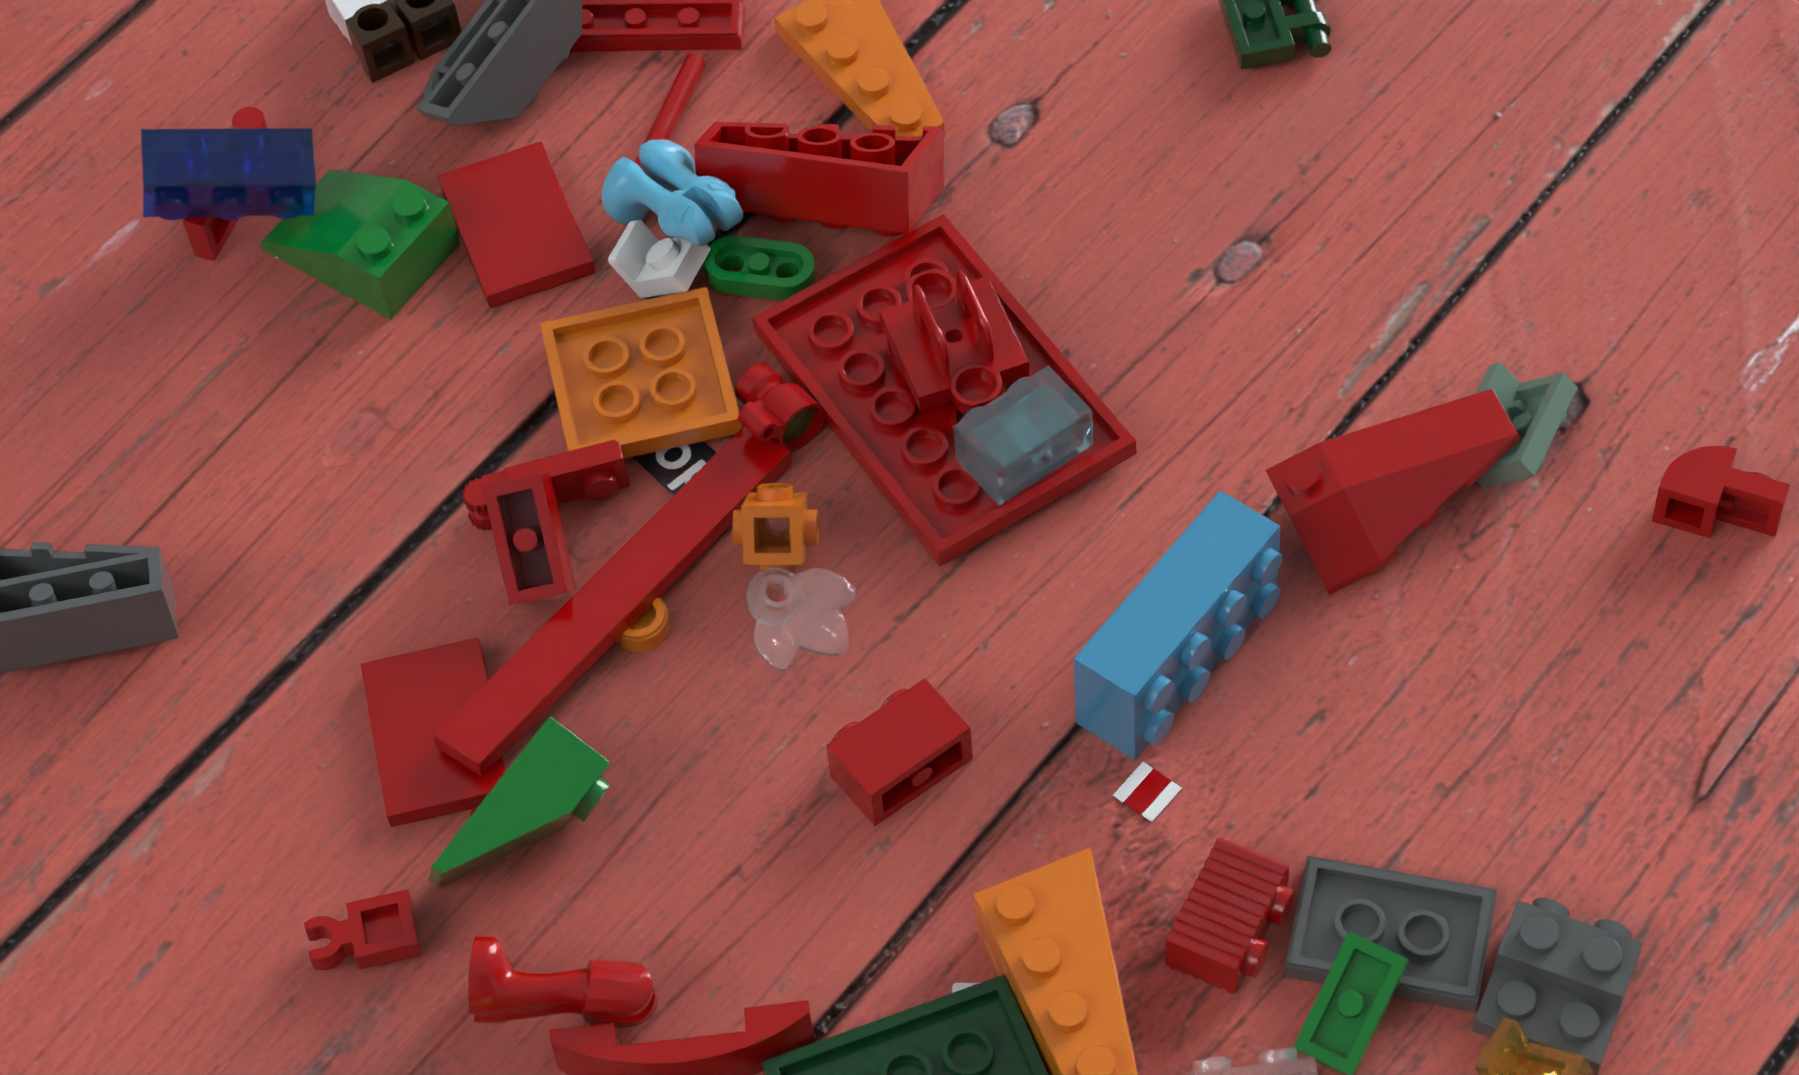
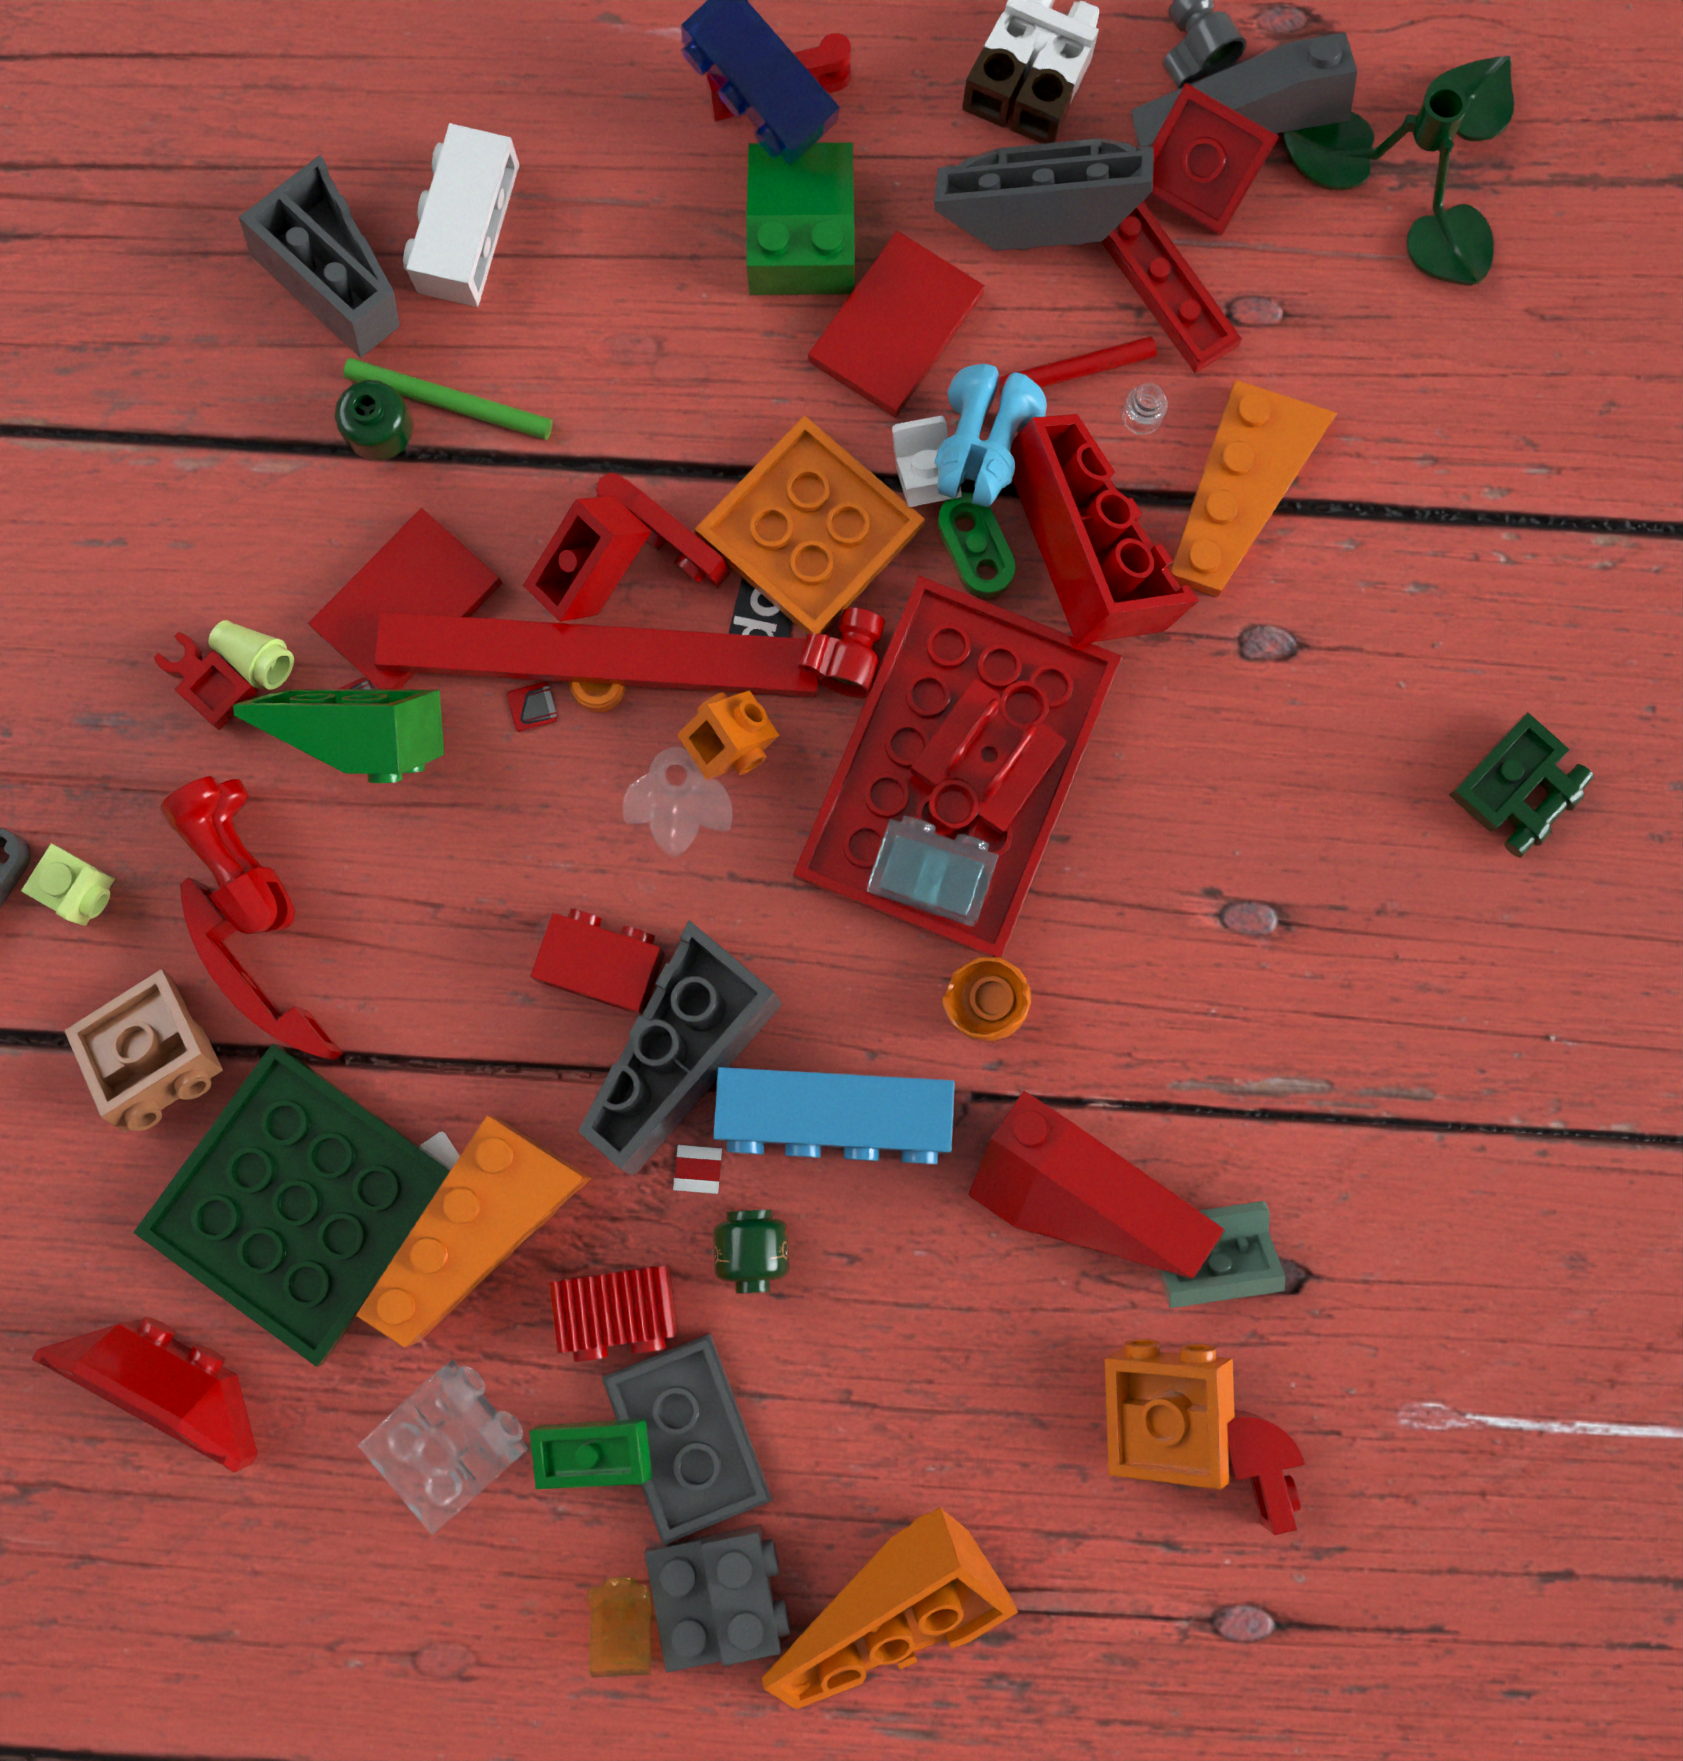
camera: 50 degrees right, 25 degrees up
(125, 479) = (461, 214): none -> white brick
(251, 648) = (373, 420): none -> dark green head
(276, 593) = (451, 399): none -> bright green bar
(378, 872) = (254, 655): none -> yellowish green cone
(615, 688) = (532, 706): none -> sticker
(743, 90) = (1143, 416): none -> clear hose
(1020, 710) = (693, 1024): none -> dark grey wedge
(1165, 469) = (987, 999): none -> orange hair
(1253, 776) = (750, 1250): none -> dark green head
(1626, 525) = (1169, 1414): none -> orange plate
(1663, 818) = (912, 1594): none -> orange wedge

